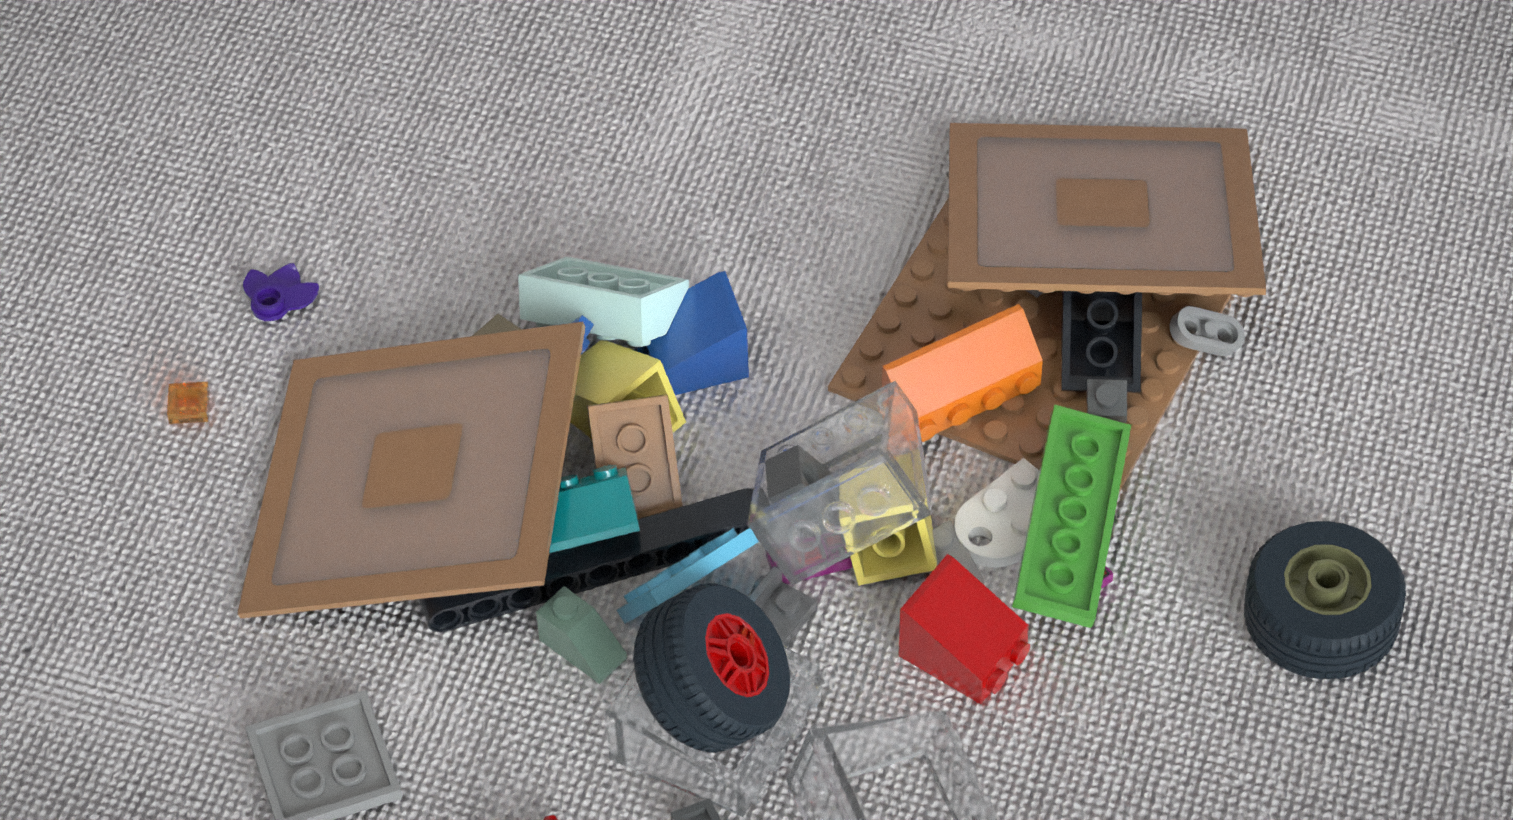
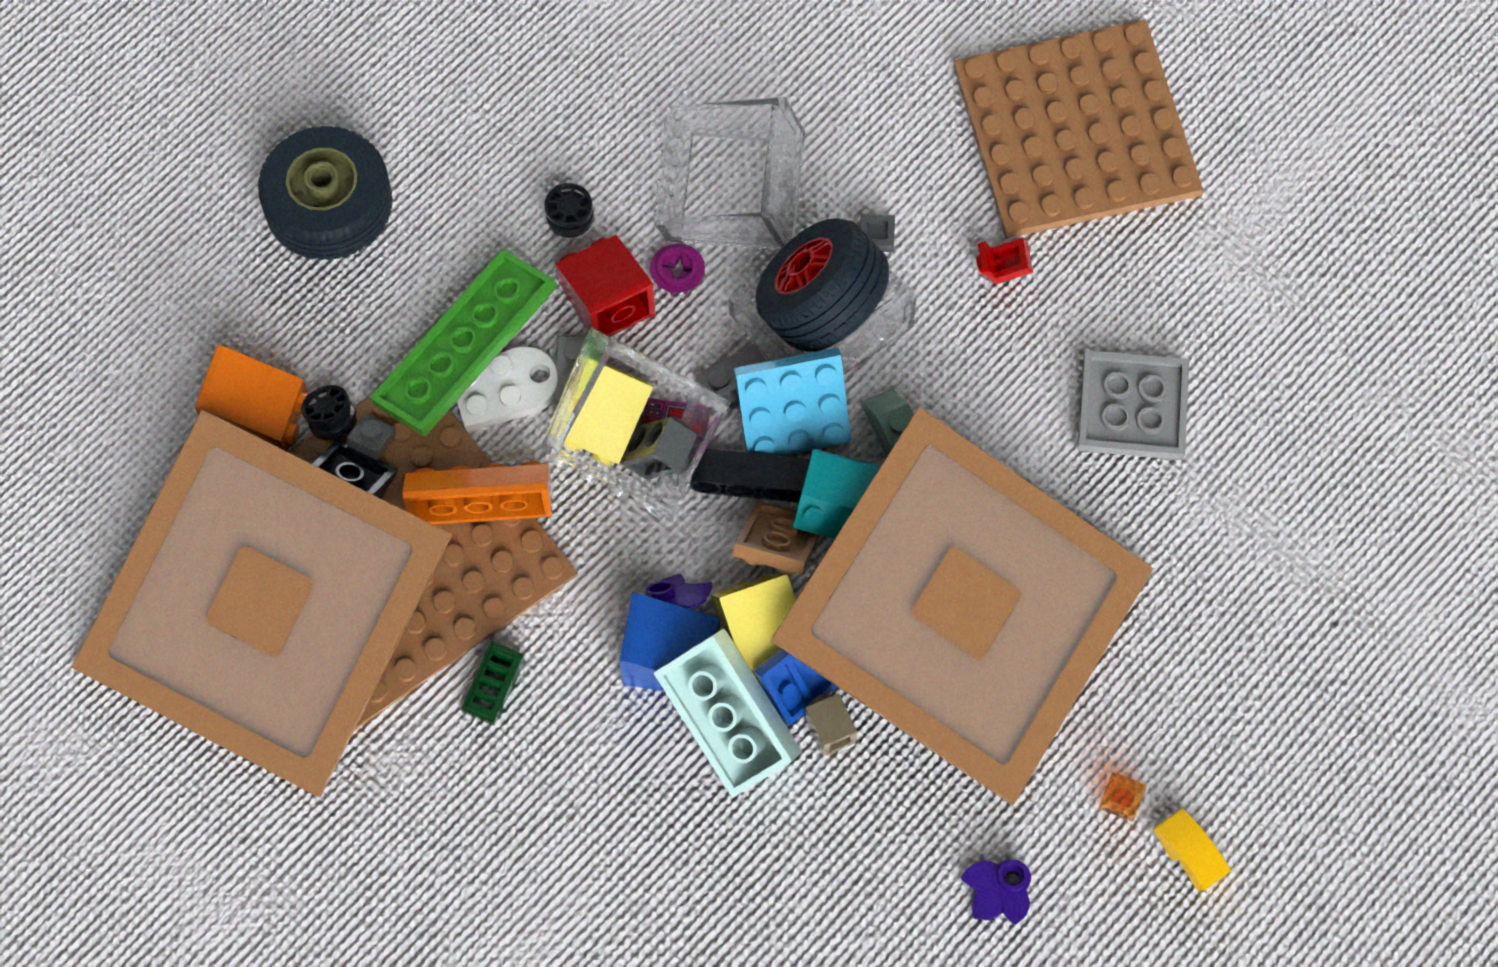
camera: 155 degrees left, 15 degrees up
(103, 382) = (1193, 848): none -> yellow slope
(708, 393) = (677, 592): none -> dark purple plate
(849, 285) = (504, 654): none -> dark green slope
(911, 689) = (667, 259): none -> magenta gear
(1056, 710) = (569, 211): none -> black wheel
(1164, 405) = (331, 414): none -> black wheel
(1247, 380) = (253, 397): none -> orange slope

